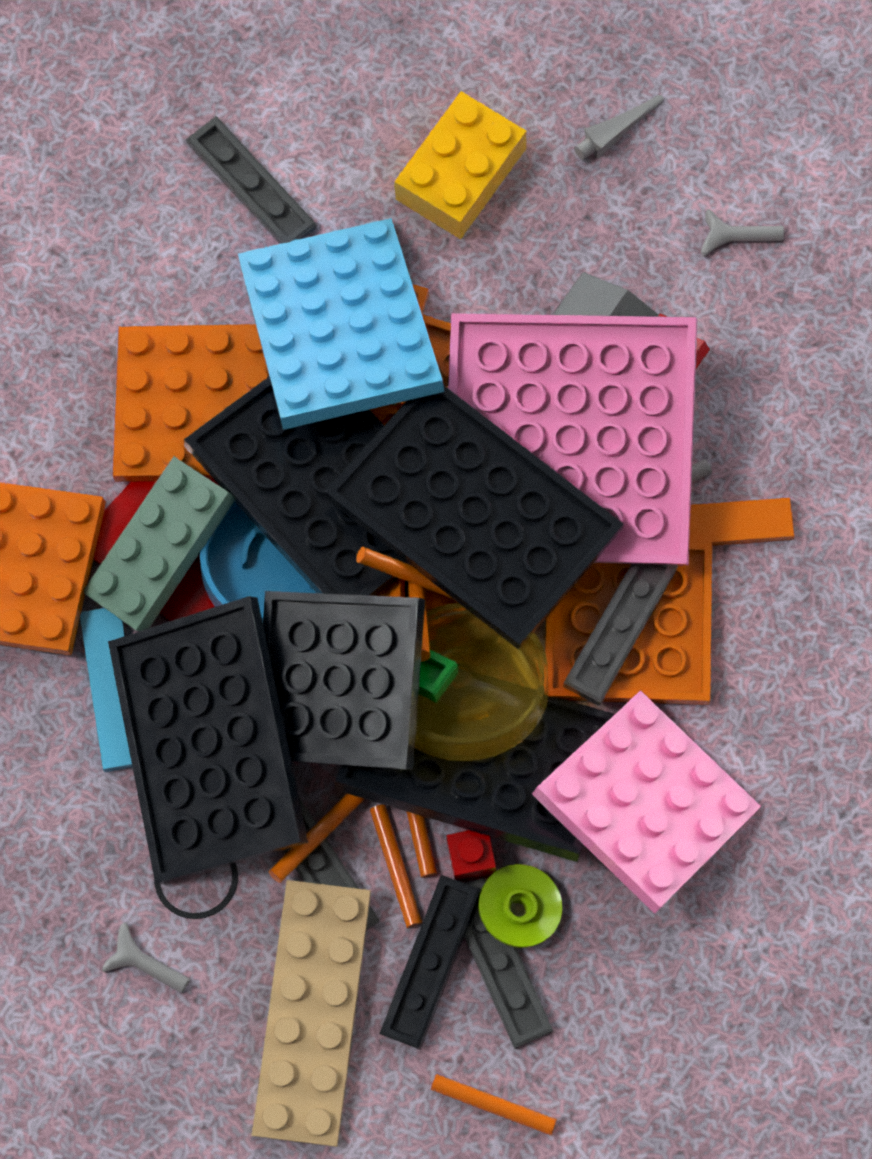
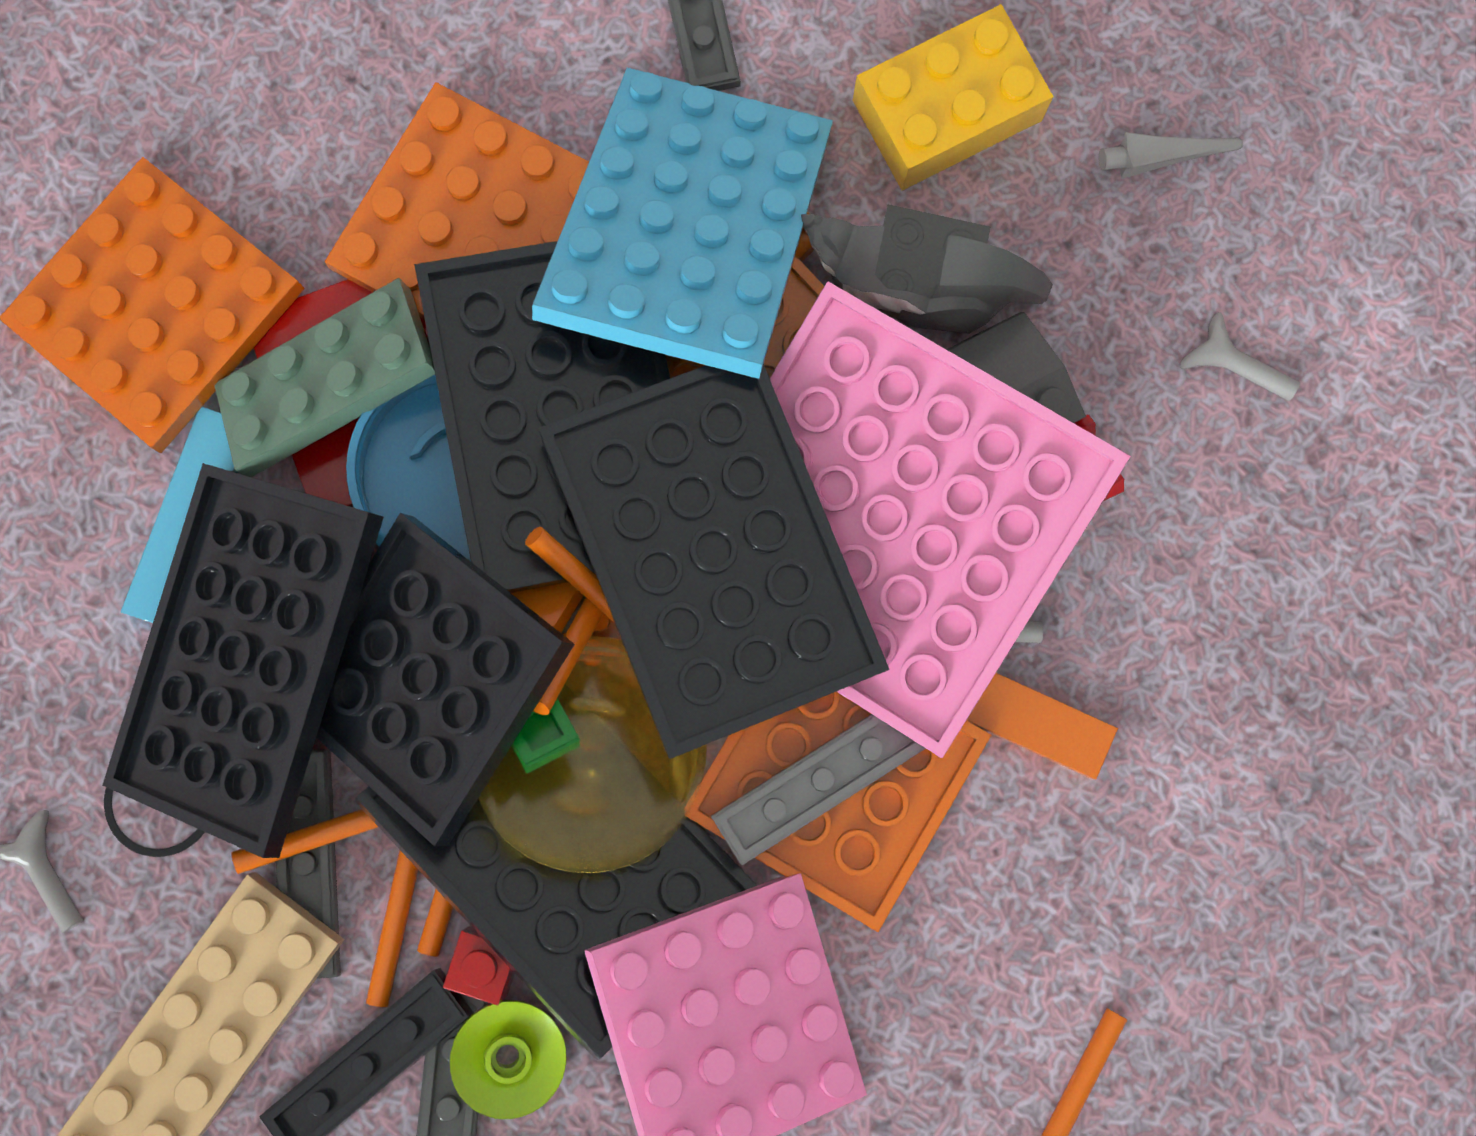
camera: 25 degrees right, 10 degrees up
(507, 276) = (925, 268): none -> dark grey animal

